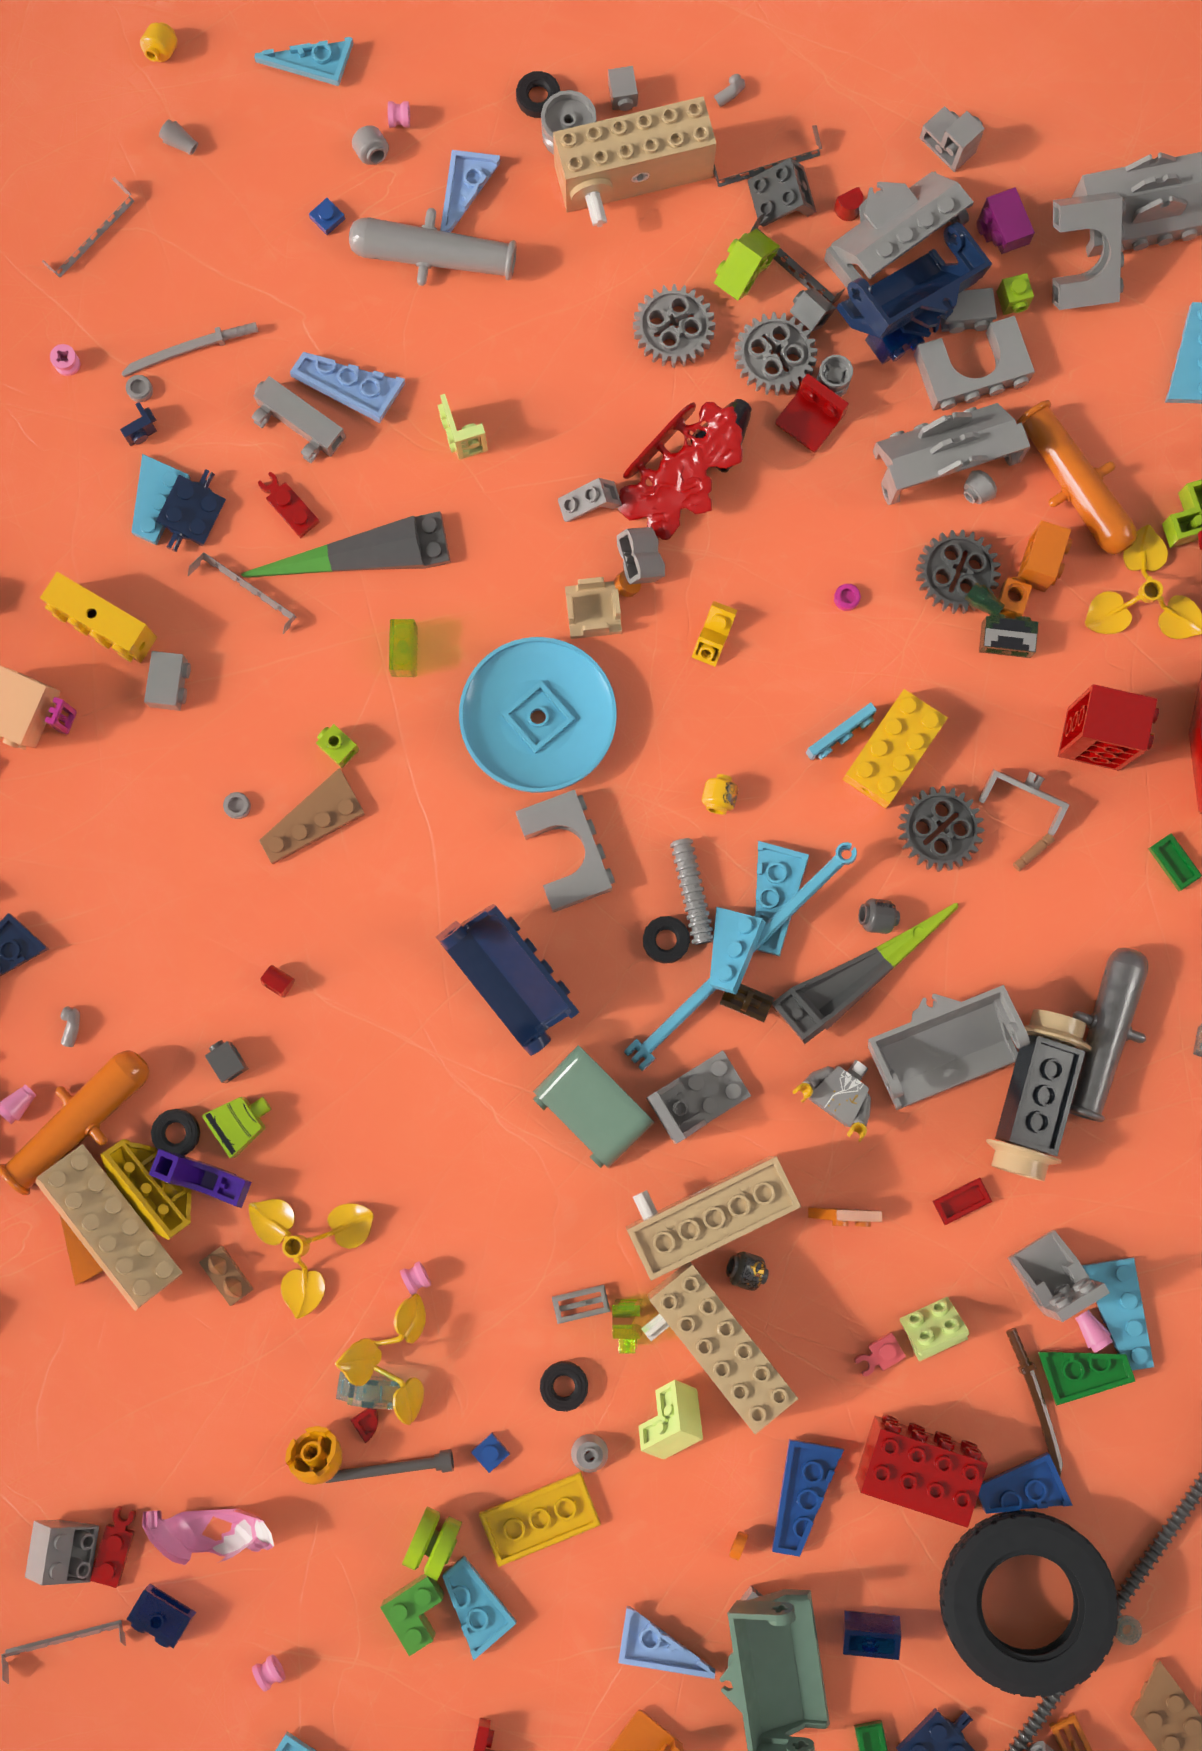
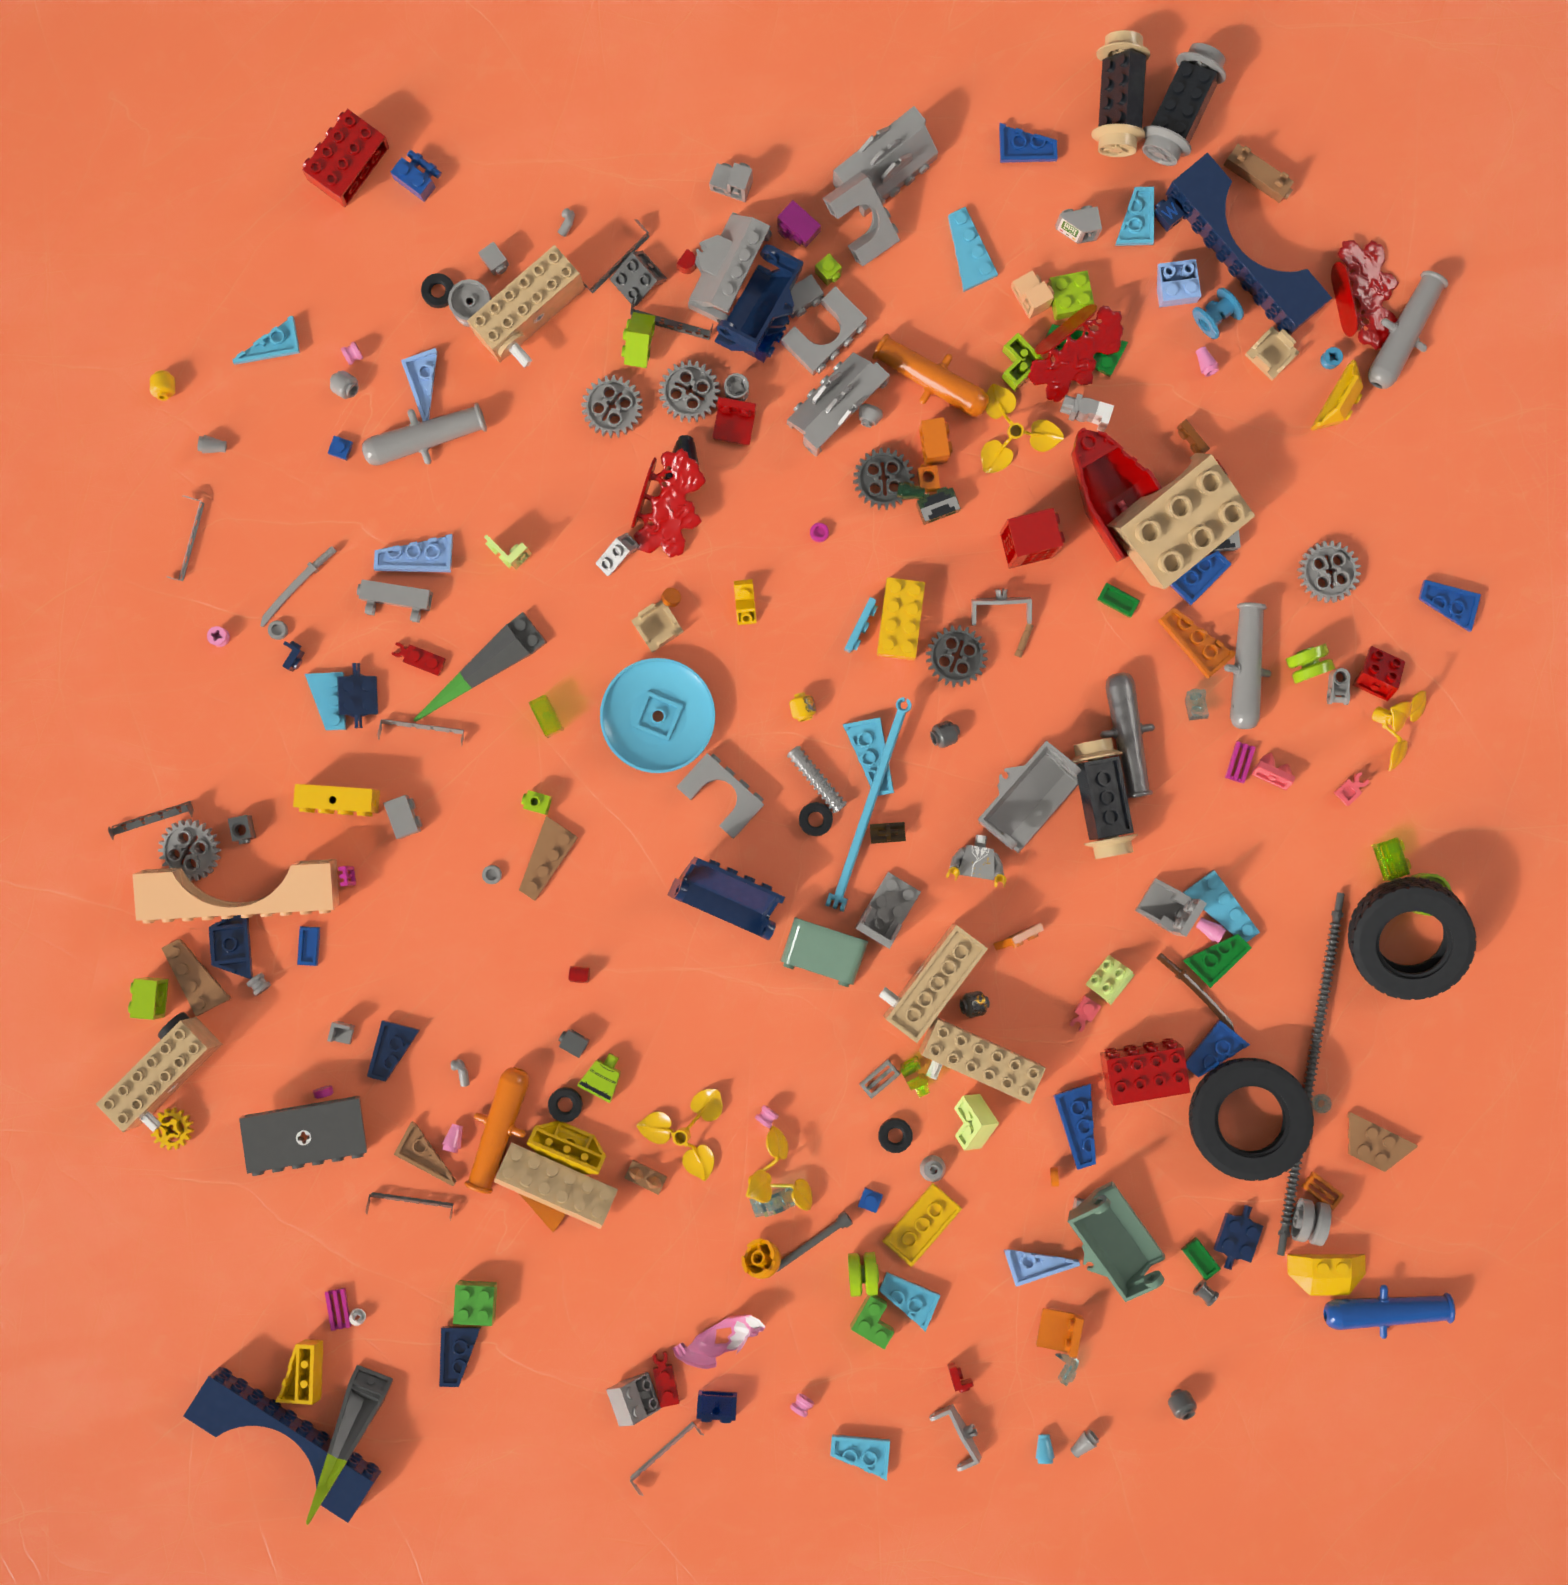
camera: 25 degrees left, 5 degrees up
(200, 1177) = (597, 1123): dark purple arch -> none
(366, 1423) = (782, 1222): red tile -> none
(640, 555) = (670, 574): light grey brick -> none
(733, 948) = (861, 803): medium azure wing -> none
(812, 309) = (698, 348): brick -> none
(827, 997) = (938, 803): dark grey plate -> none
(871, 1635) = (1164, 1188): clear blue brick -> none
(962, 1201) = (1088, 889): red tile -> none

